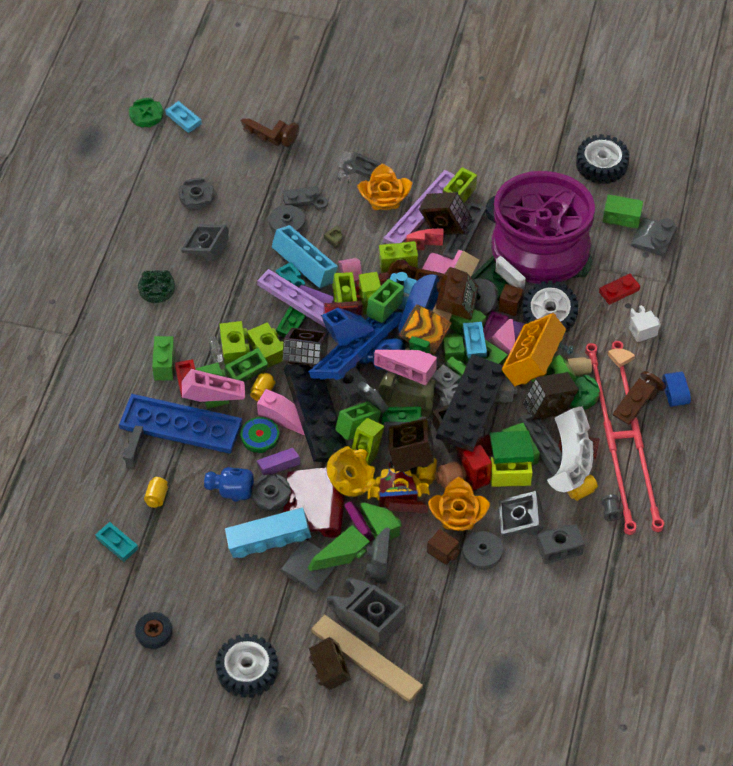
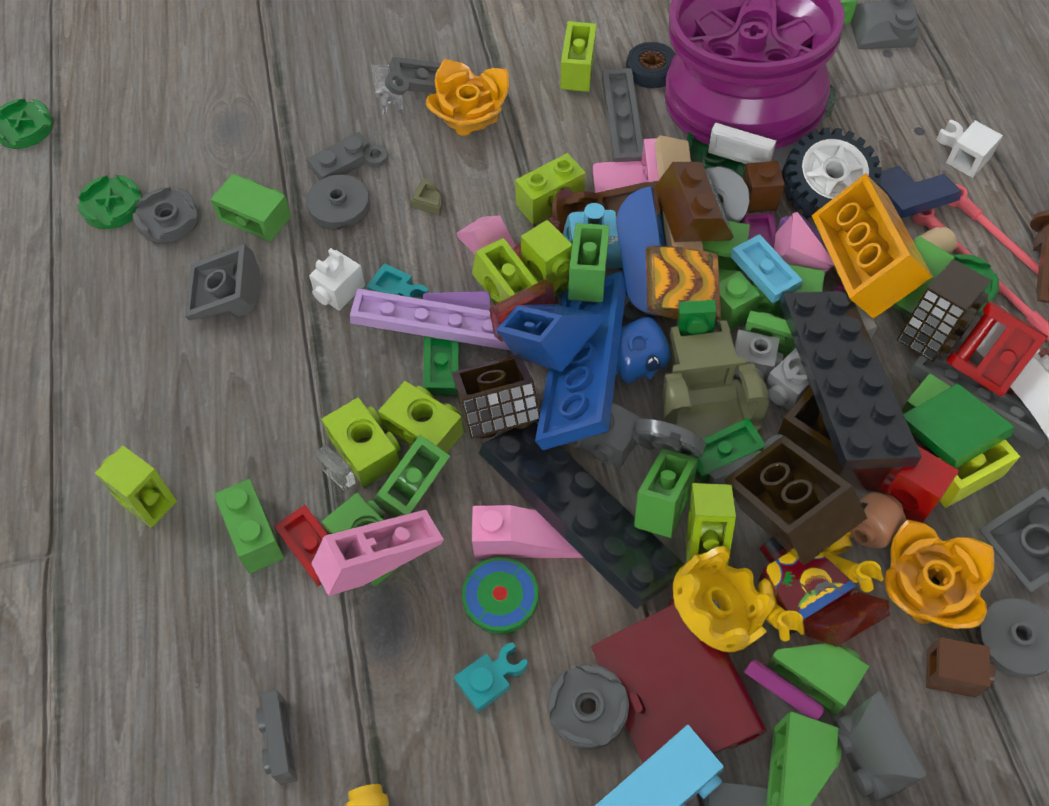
camera: 25 degrees left, 5 degrees up
(122, 319) = (136, 486): none -> lime brick
(156, 286) = (170, 396): clear green tile -> none
(171, 174) = (109, 201): none -> green tile
(181, 423) = (342, 642): blue plate -> none
(183, 117) = (87, 107): medium azure plate -> none
(232, 483) = (511, 727): blue piece -> none
(235, 462) = (486, 681): none -> teal plate
(240, 206) = (251, 207): none -> bright green brick
(262, 260) = (336, 279): none -> white brick
(263, 382) = (456, 501): yellow brick -> none
(278, 462) = (563, 633): medium lavender slope -> none
(281, 132) = (249, 84): reddish brown piece -> none
(304, 256) = (403, 245): medium azure brick -> none
(407, 363) = (705, 352): bright pink slope -> none
(413, 218) = (537, 108): lavender plate -> none
(426, 237) = (575, 141): coral slope -> none
(445, 212) = (587, 93): dark brown brick -> none
(563, 427) = (1006, 357): none -> red plate
(587, 336) = (917, 197): none -> dark blue tile
(619, 289) = (893, 111): red plate -> none
(621, 356) = (980, 206): light nougat tile -> none

